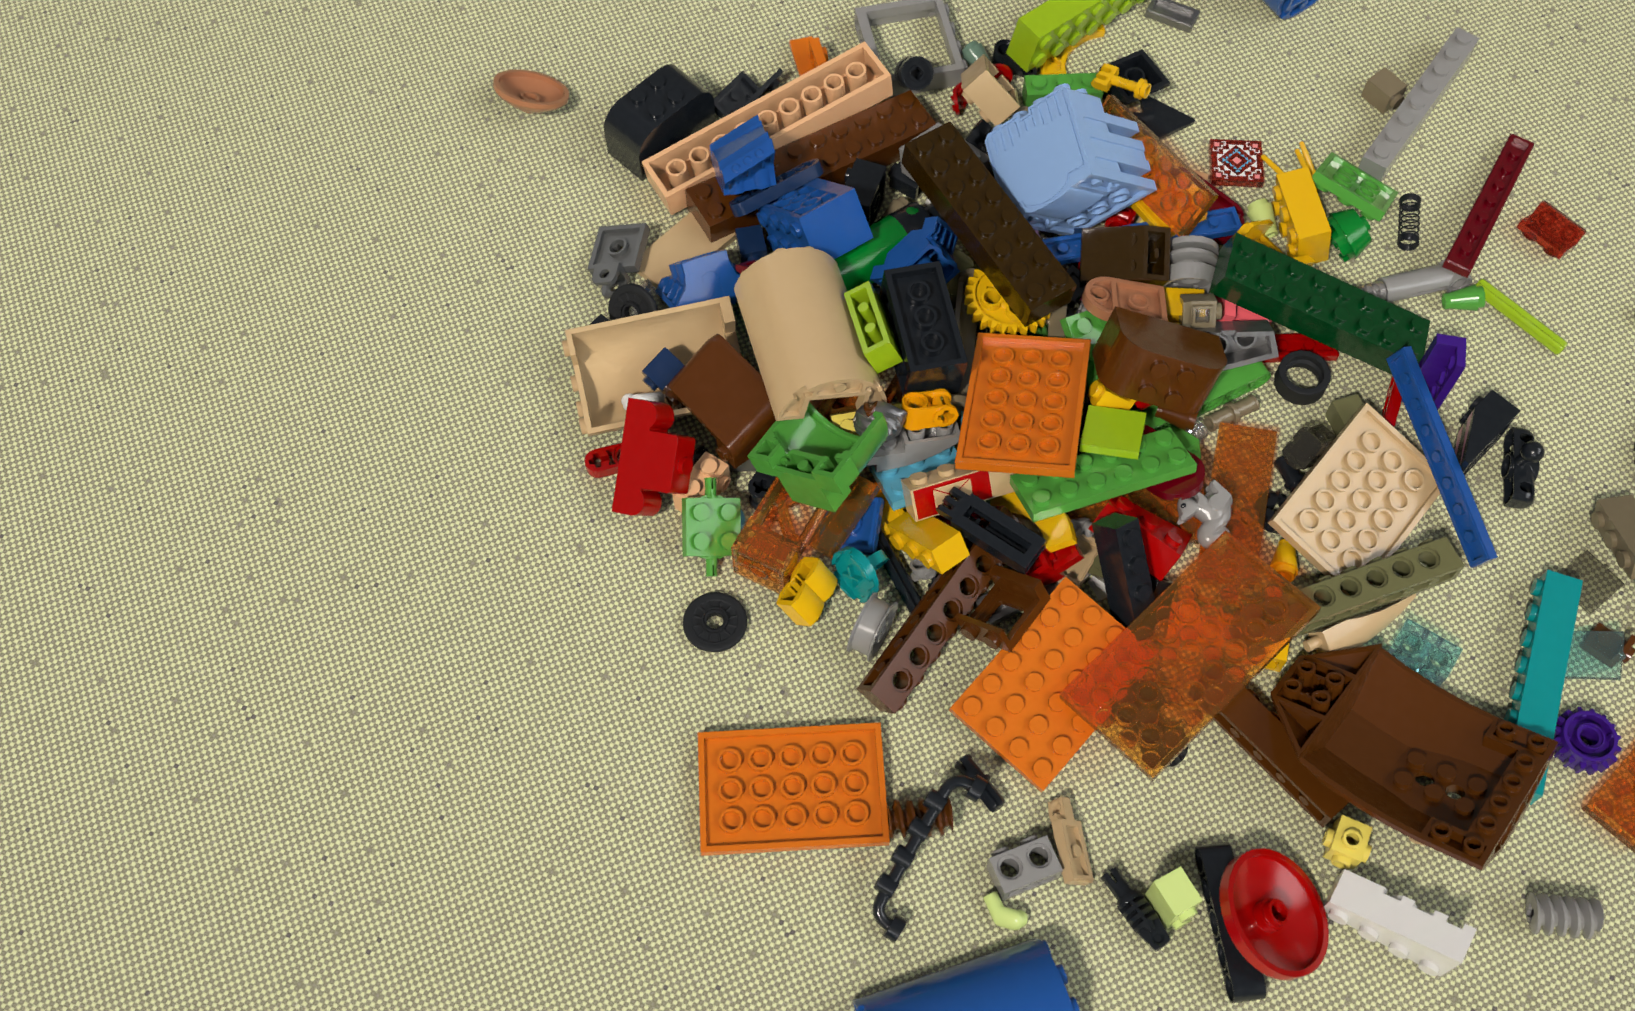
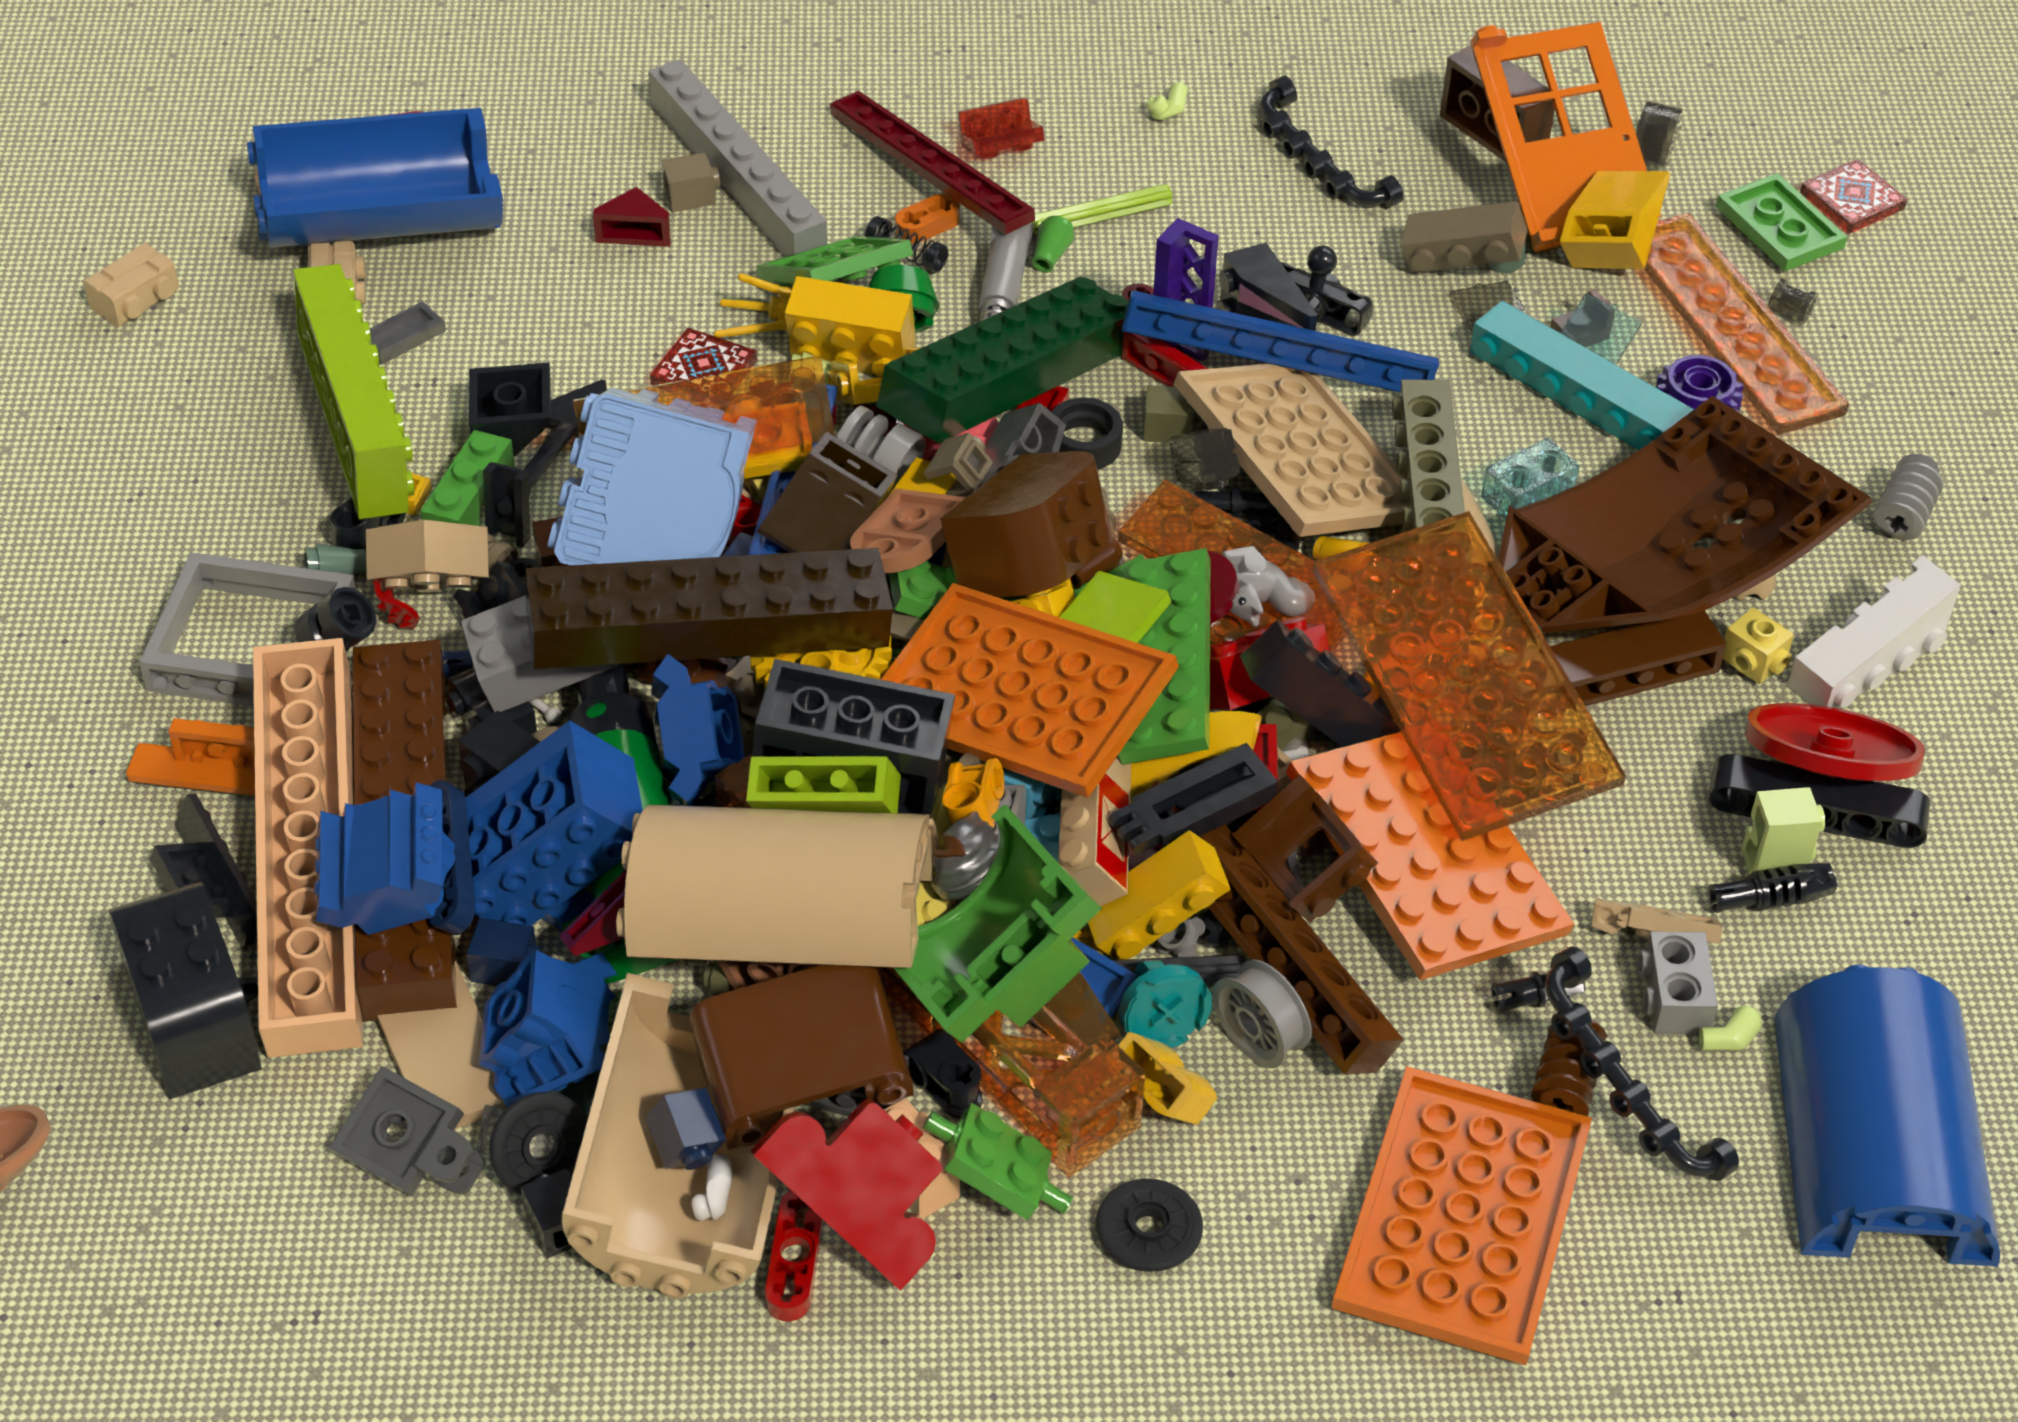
camera: 70 degrees left, 15 degrees down
(1109, 76) = (500, 420): yellow hinge -> none
(1329, 76) = (632, 220): none -> dark red slope
(1442, 225) = (929, 217): none -> orange beam

